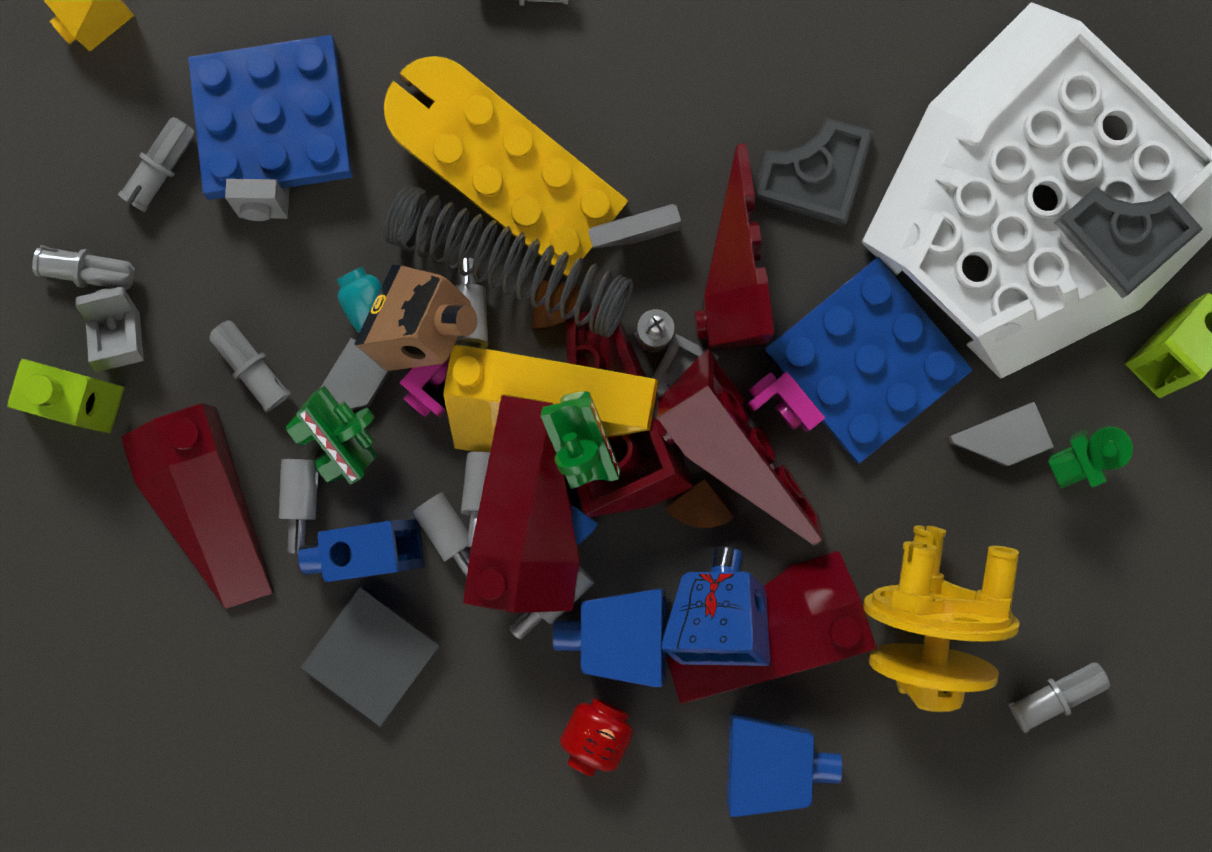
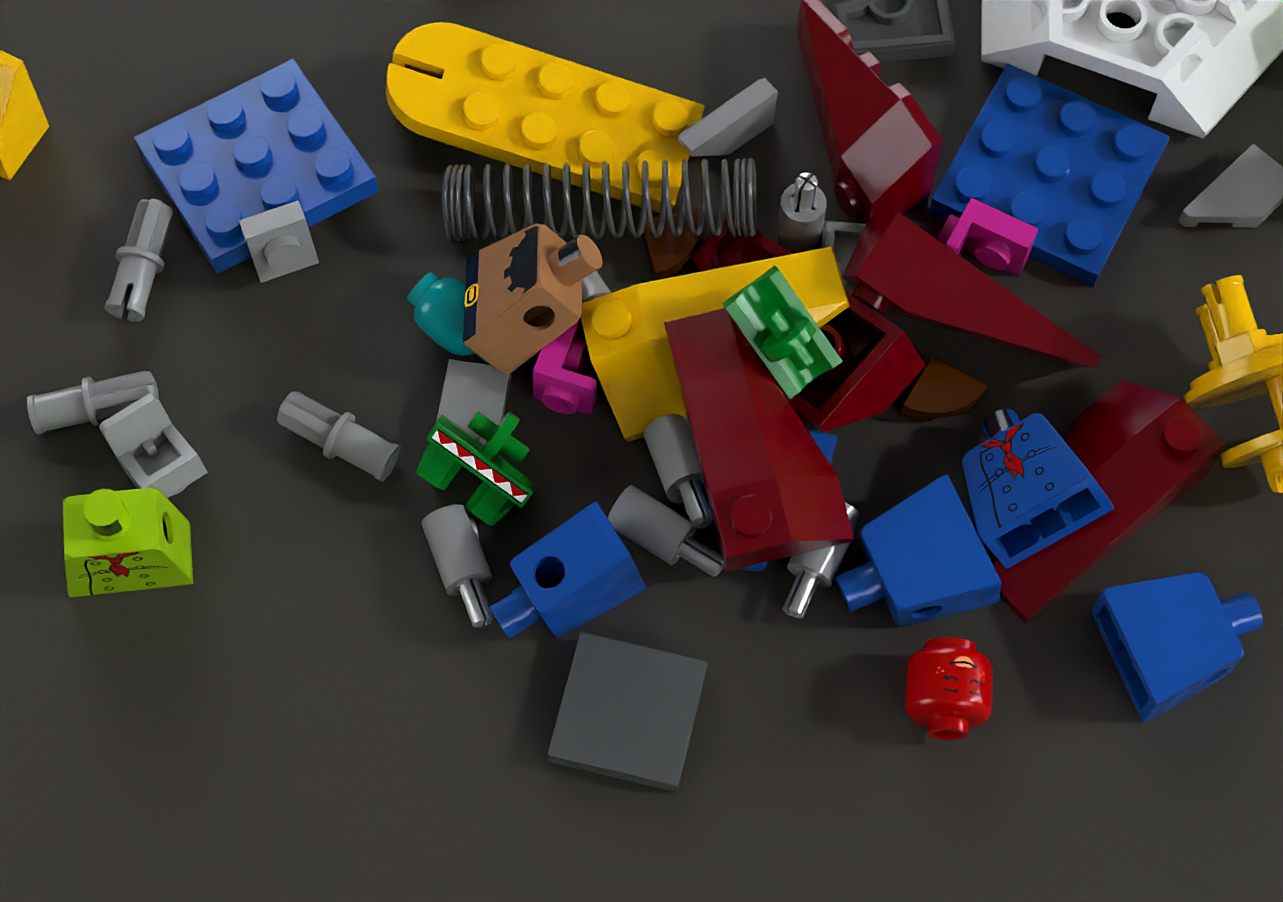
camera: 30 degrees left, 20 degrees down
(194, 488) = (321, 594): dark red wedge -> none

